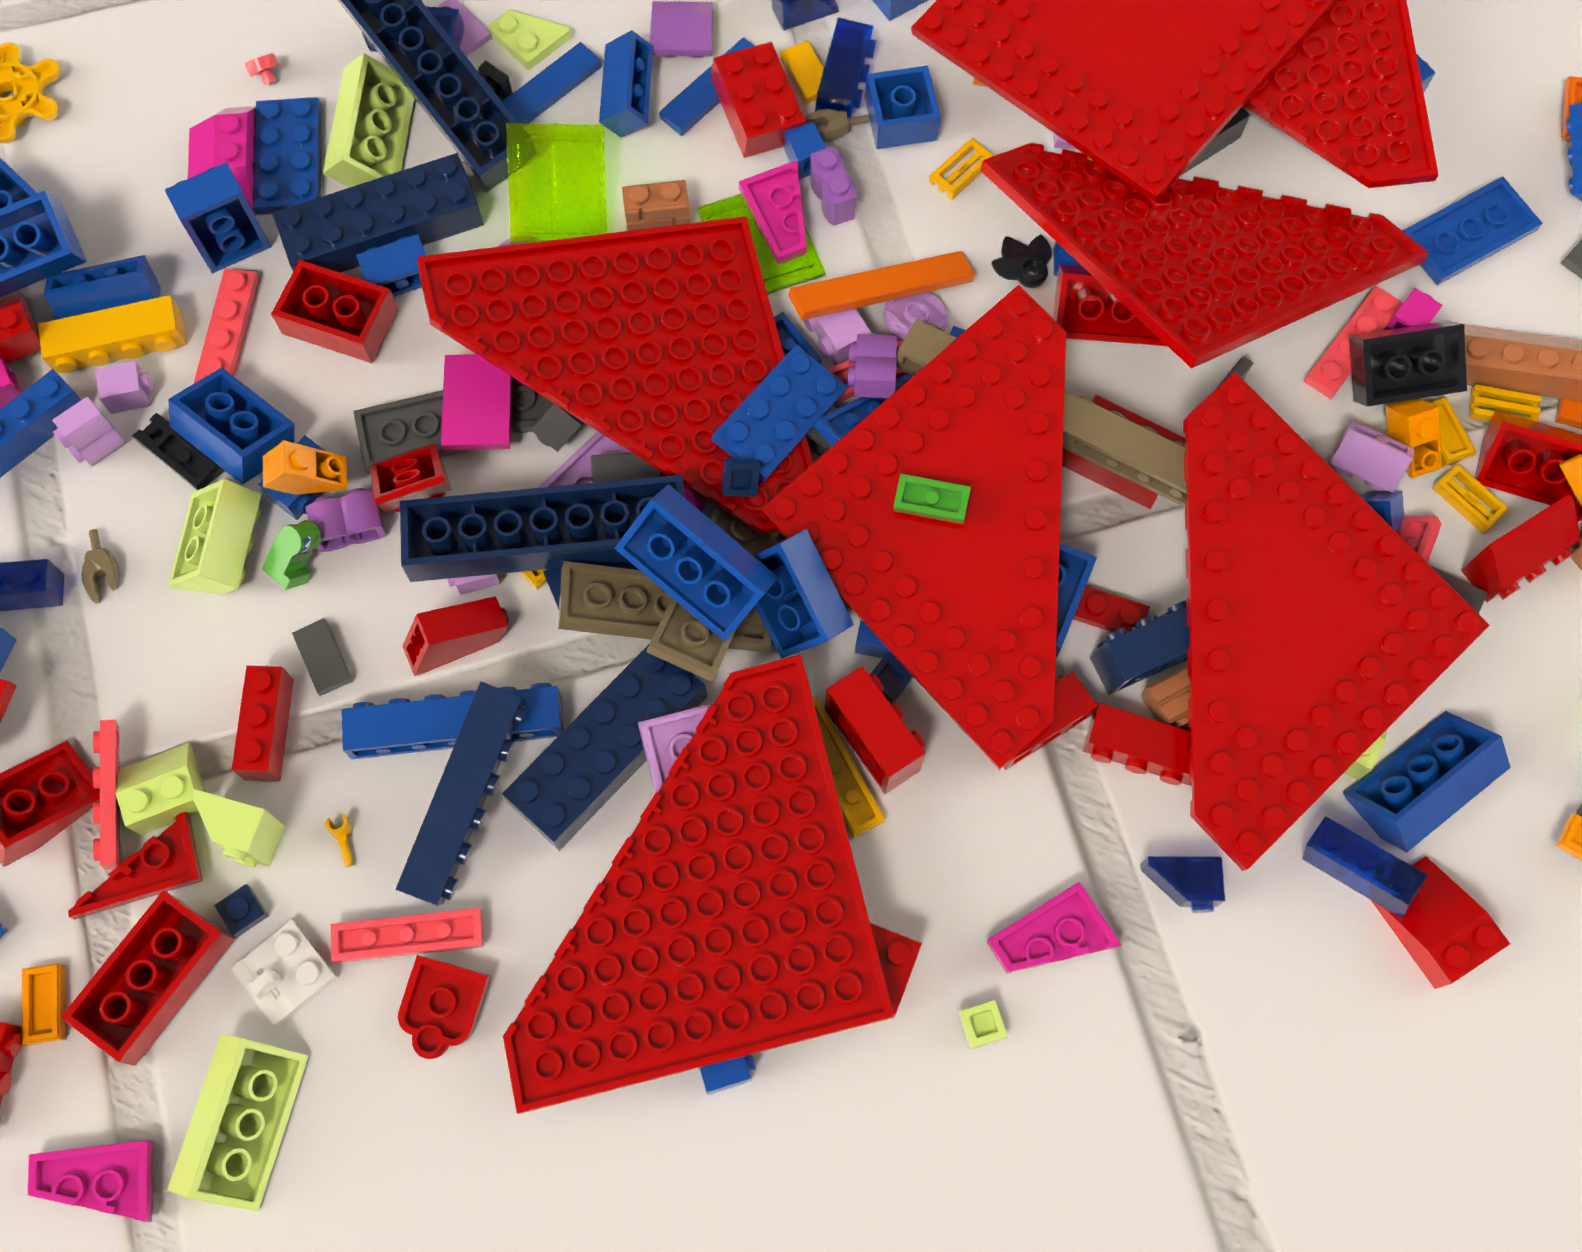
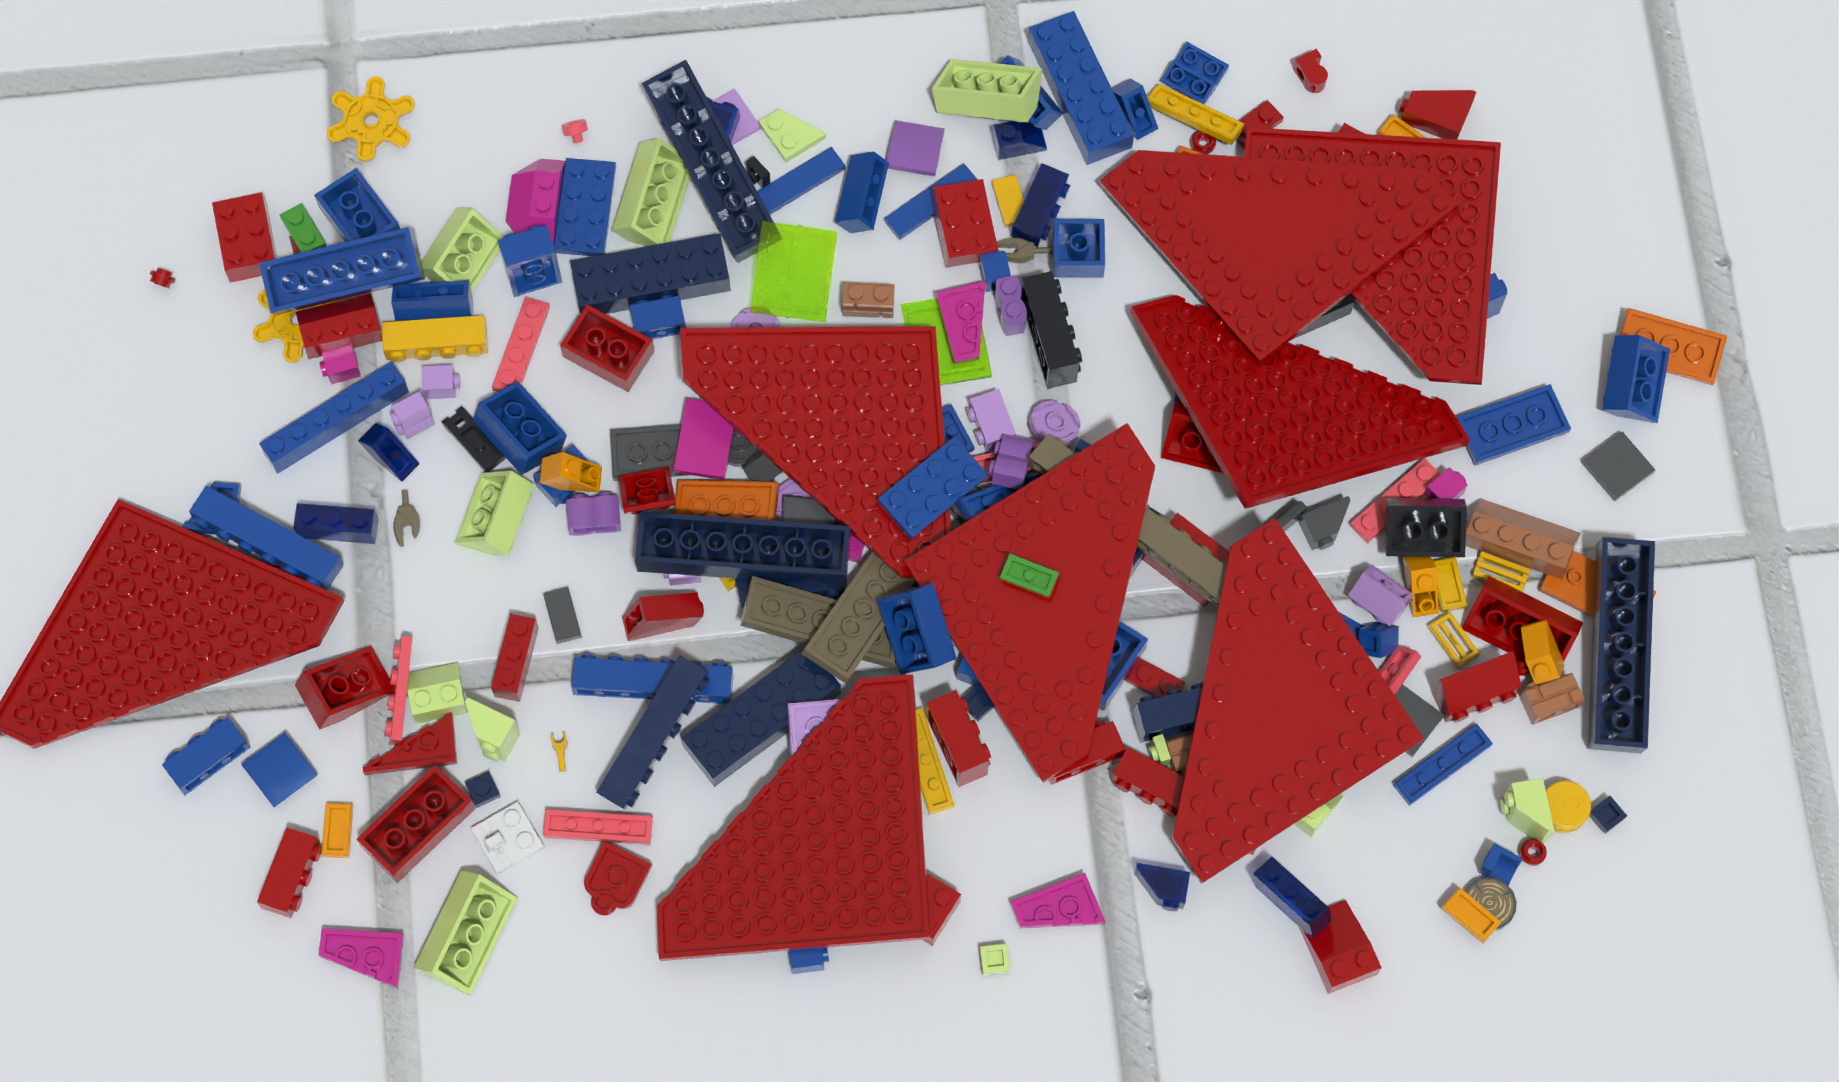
camera: 10 degrees right, 0 degrees up
(66, 484) = (388, 451): none -> clear blue slope
(135, 223) = (462, 249): none -> yellowish green slope
(291, 553) = (551, 533): bright green leg -> none
(519, 468) = (728, 499): none -> orange plate
(696, 562) = (848, 594): blue slope -> none
(740, 477) = (892, 534): dark blue plate -> none
(880, 285) = (1032, 396): orange tile -> none
(888, 201) = (1050, 329): none -> black brick
(969, 177) = (1101, 317): yellow tile -> none
(1019, 259) = (1148, 389): black plate -> none
(1140, 700) = (1159, 751): none -> yellowish green plate
(1279, 378) = (1324, 523): none -> dark grey slope
(1428, 779) = (1360, 845): blue slope -> none
(1500, 656) = (1442, 764): none -> blue tile

